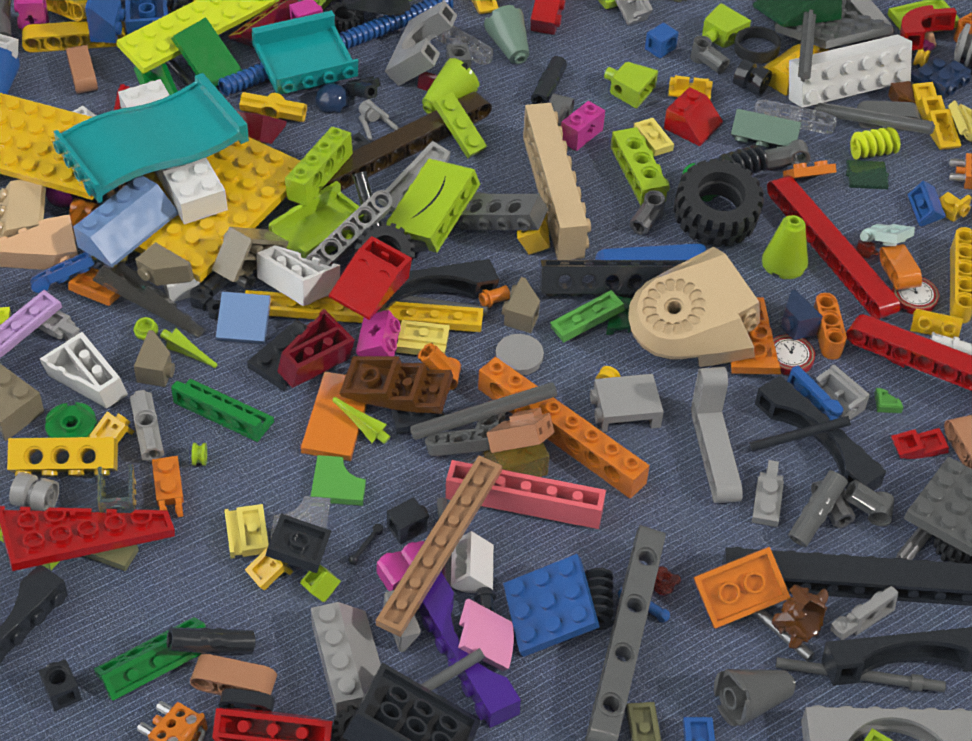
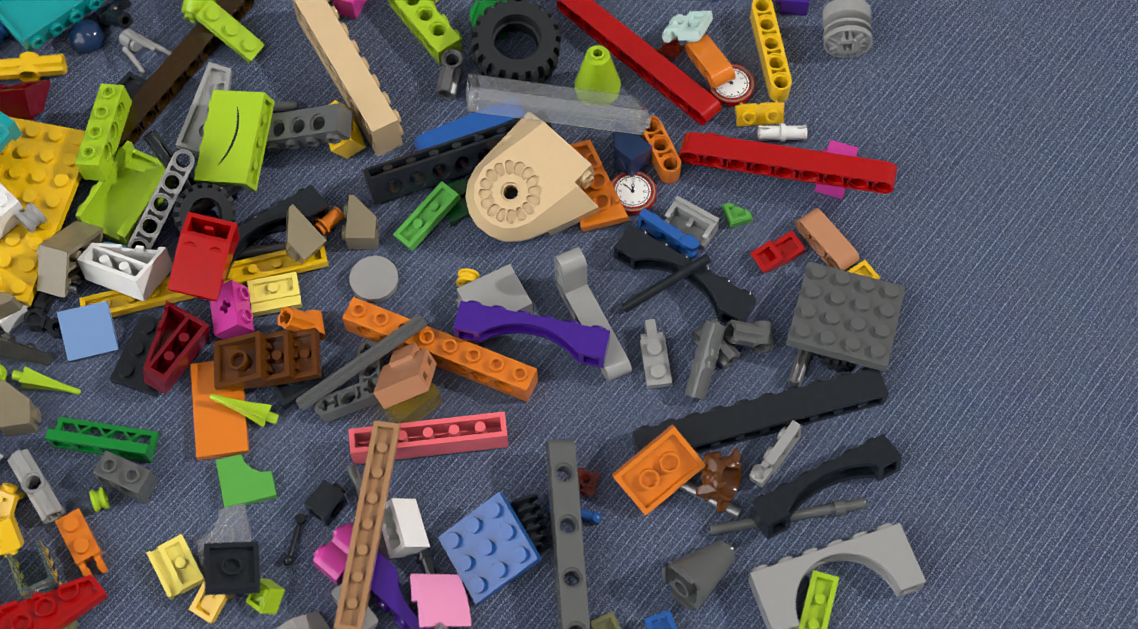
camera: 15 degrees left, 15 degrees up
(229, 209) = (31, 217): none -> light grey wheel
(230, 442) = (125, 476): none -> dark grey brick
(466, 295) = (301, 236): none -> dark tan slope
(610, 410) = (482, 322): none -> dark purple arch
(742, 249) = (556, 104): none -> clear door

